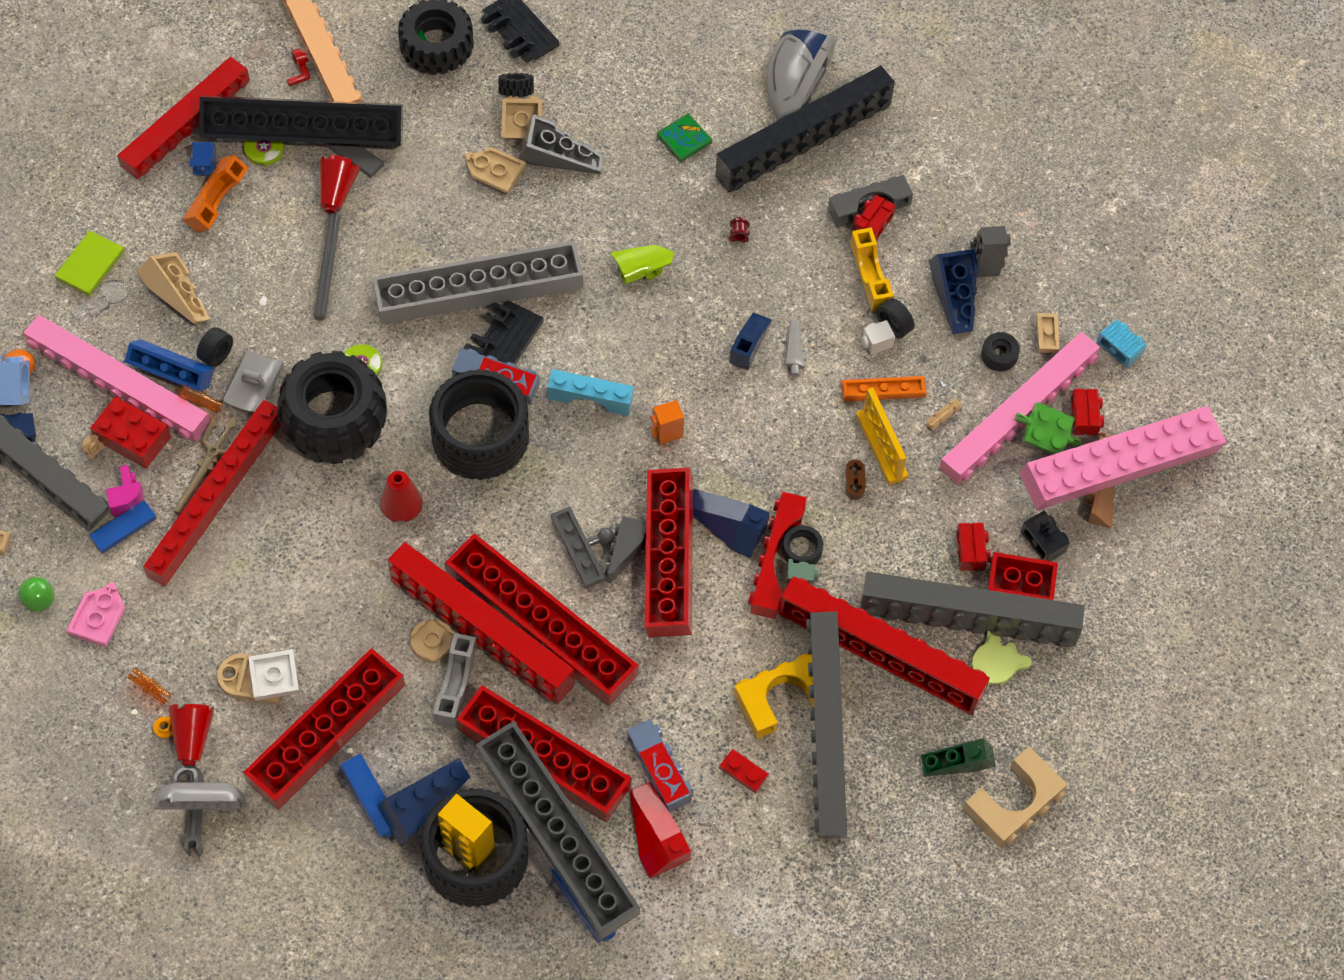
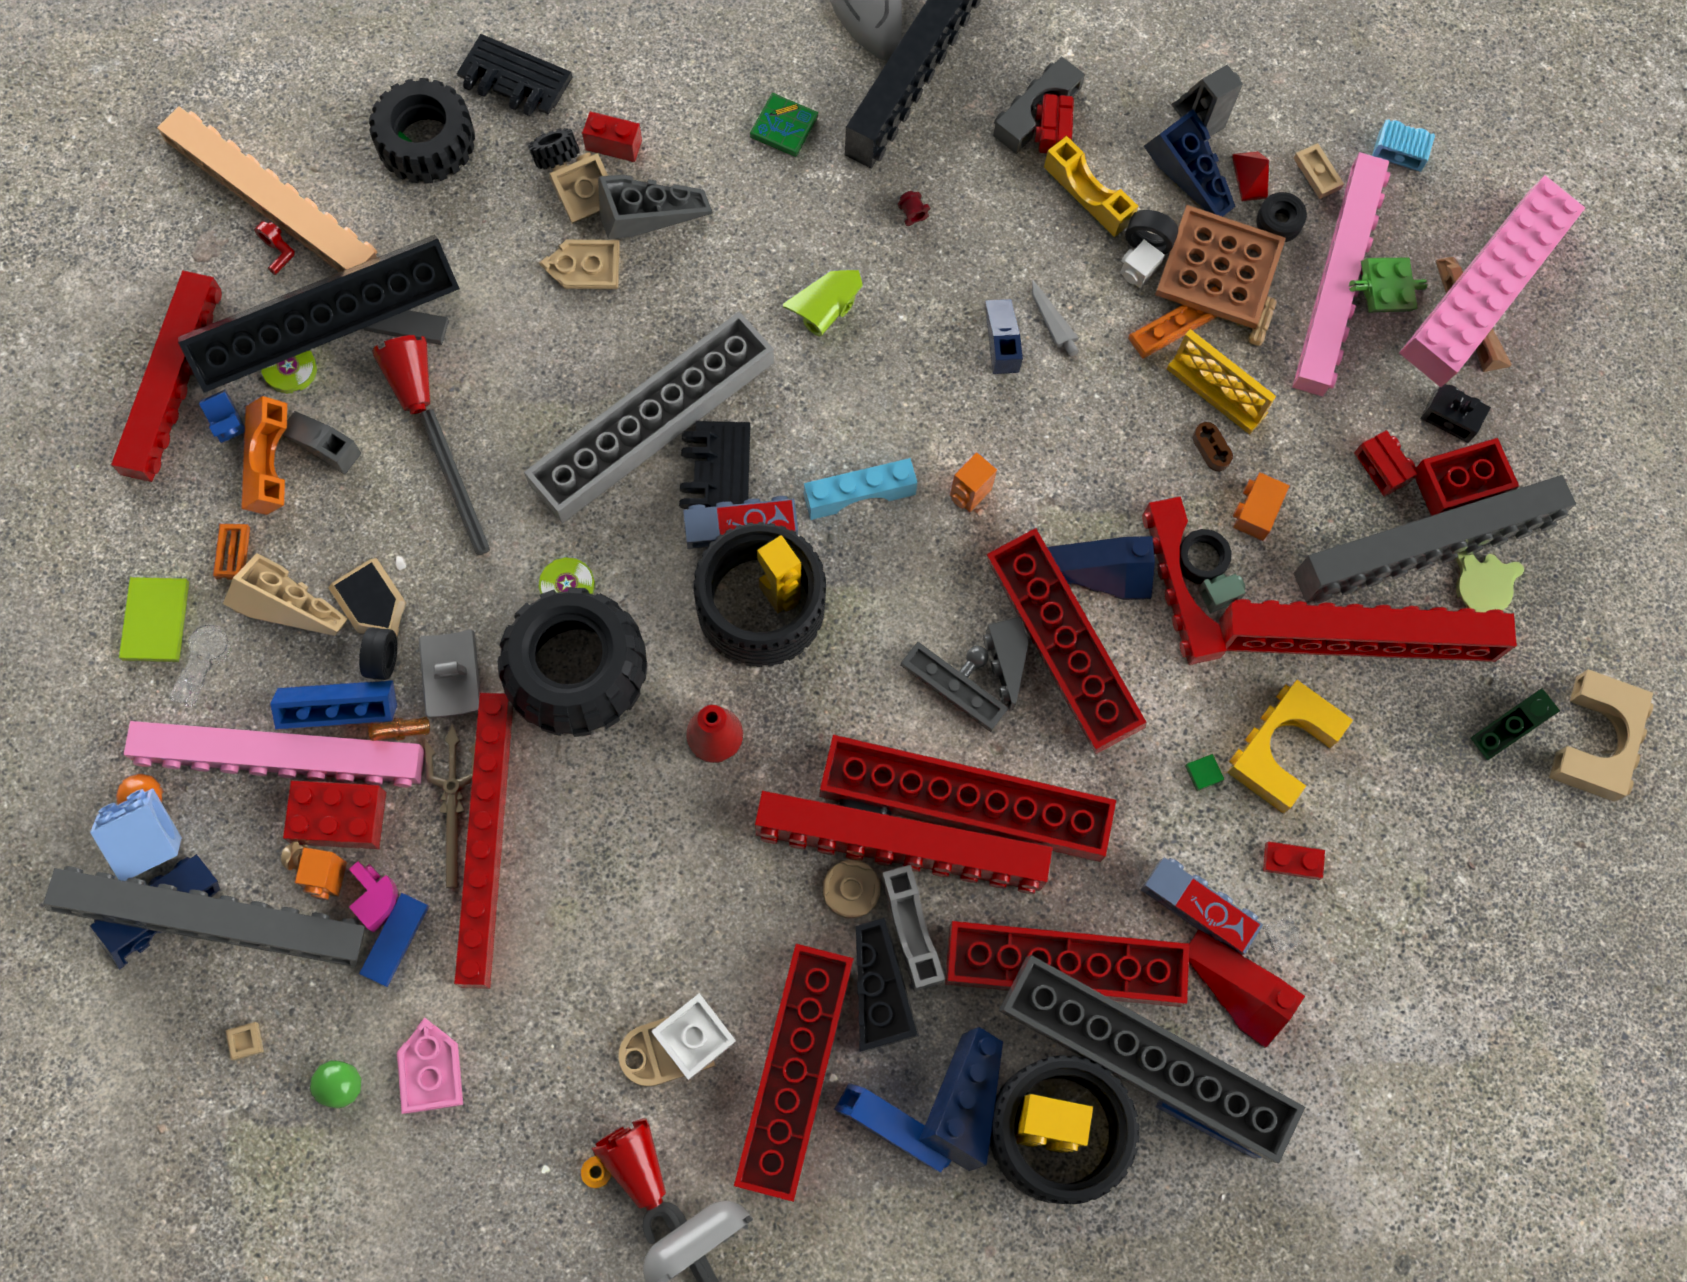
camera: 30 degrees left, 10 degrees up
(101, 460) = (320, 873): none -> orange brick
(149, 685) = (547, 1128): clear orange pin -> none
(165, 244) = (220, 551): none -> orange tile
(231, 312) = (369, 598): none -> black tile
(257, 202) = (322, 441): none -> dark grey slope
(412, 707) = (882, 996): none -> black wedge
(496, 411) = (782, 574): none -> yellow arch
(560, 94) = (612, 136): none -> red brick
(716, 685) = (1204, 772): none -> green tile
(828, 725) = (1369, 761): dark grey brick -> none
(863, 532) = (1260, 506): none -> orange brick
(934, 376) = (1229, 281): none -> nougat piece
(996, 315) = (1251, 175): none -> red slope
(1086, 411) = (1411, 239): red brick -> none

